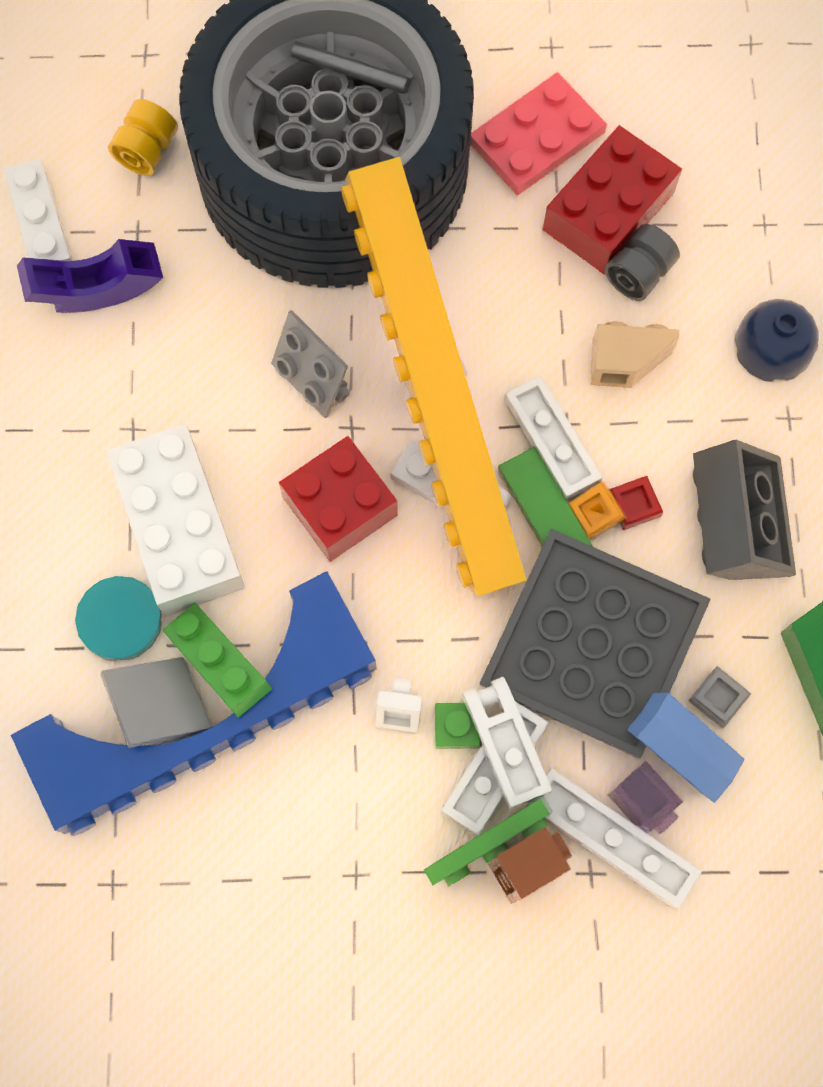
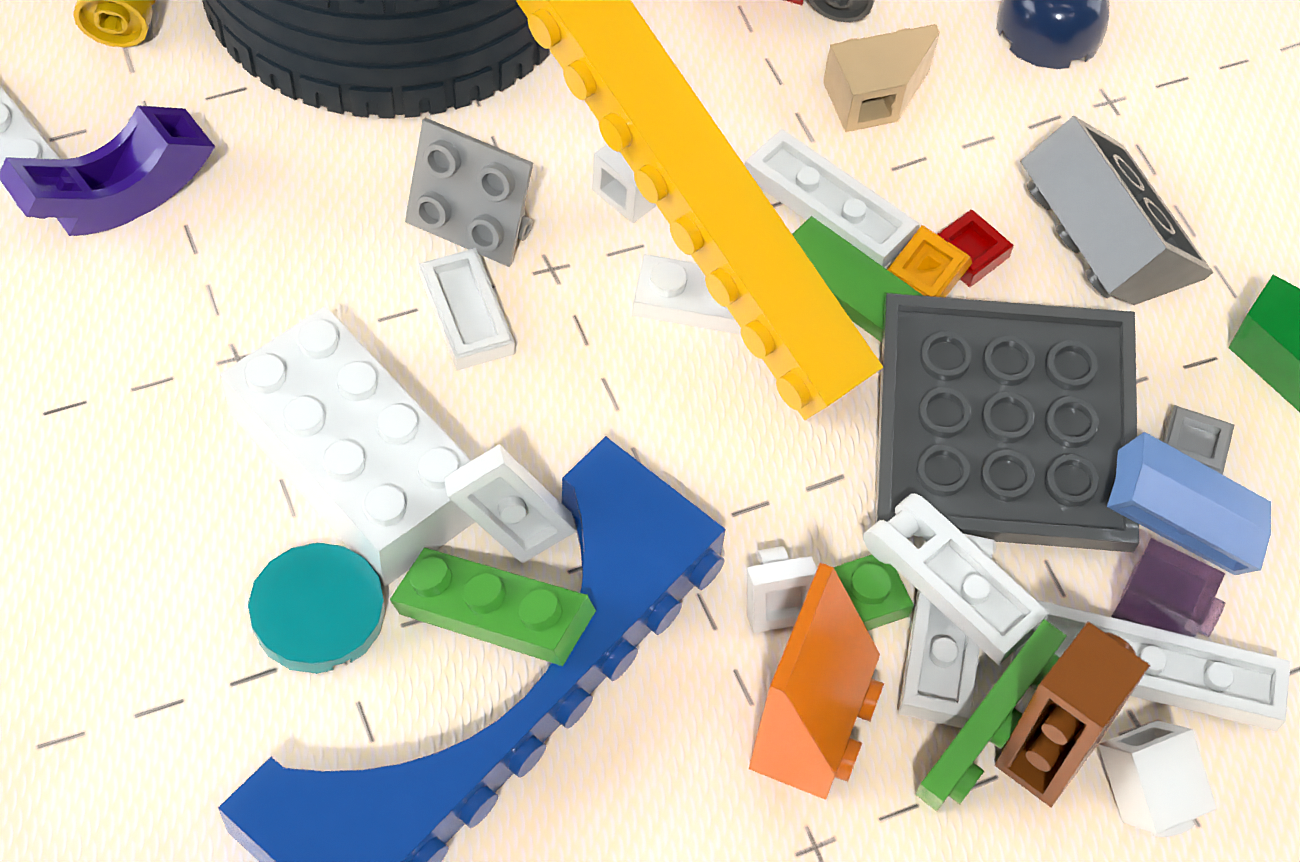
camera: 25 degrees left, 15 degrees down
(155, 701) = (424, 690): light grey piece -> none
(247, 599) = (509, 504): none -> white plate
(283, 438) = (466, 309): none -> white tile
(339, 498) = (577, 349): red brick -> none
(385, 790) = (818, 692): none -> orange slope
(576, 917) = (1158, 778): none -> white brick

